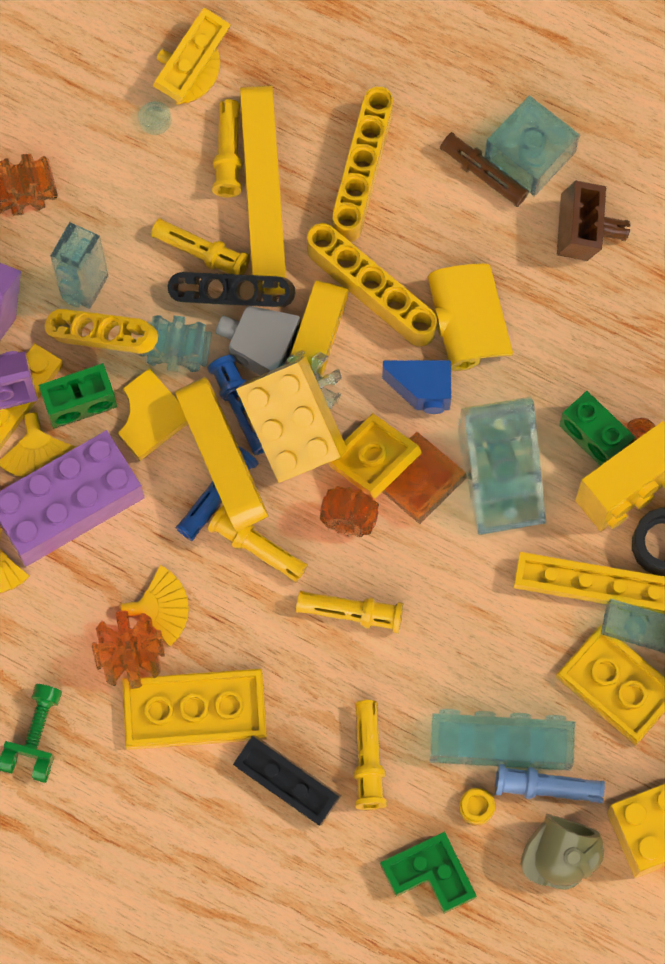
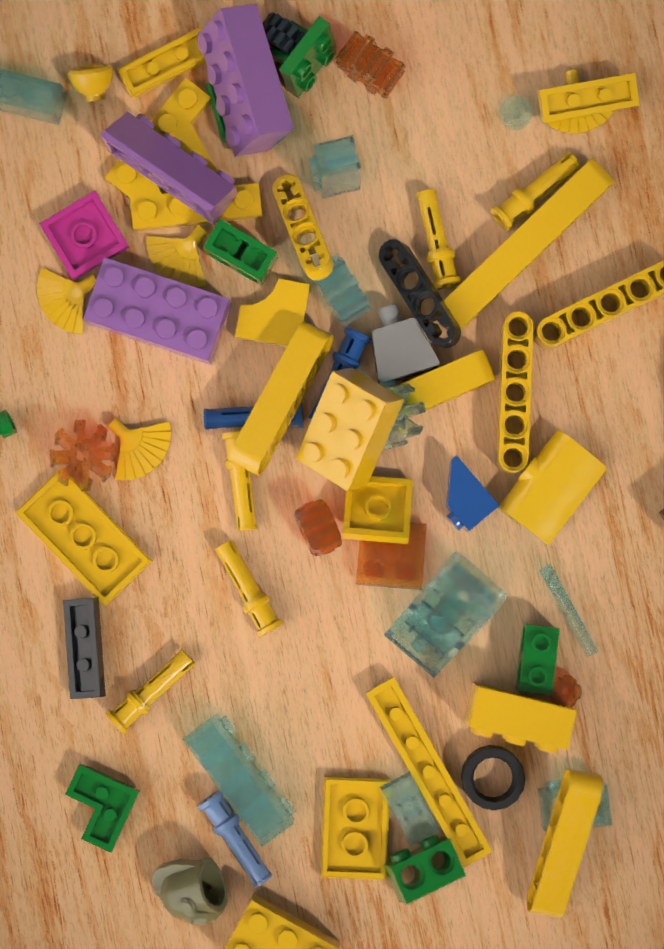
camera: 55 degrees right, 15 degrees up
(477, 806) = (179, 798): yellow tile -> none
(578, 381) = (568, 610): none -> clear light blue bar

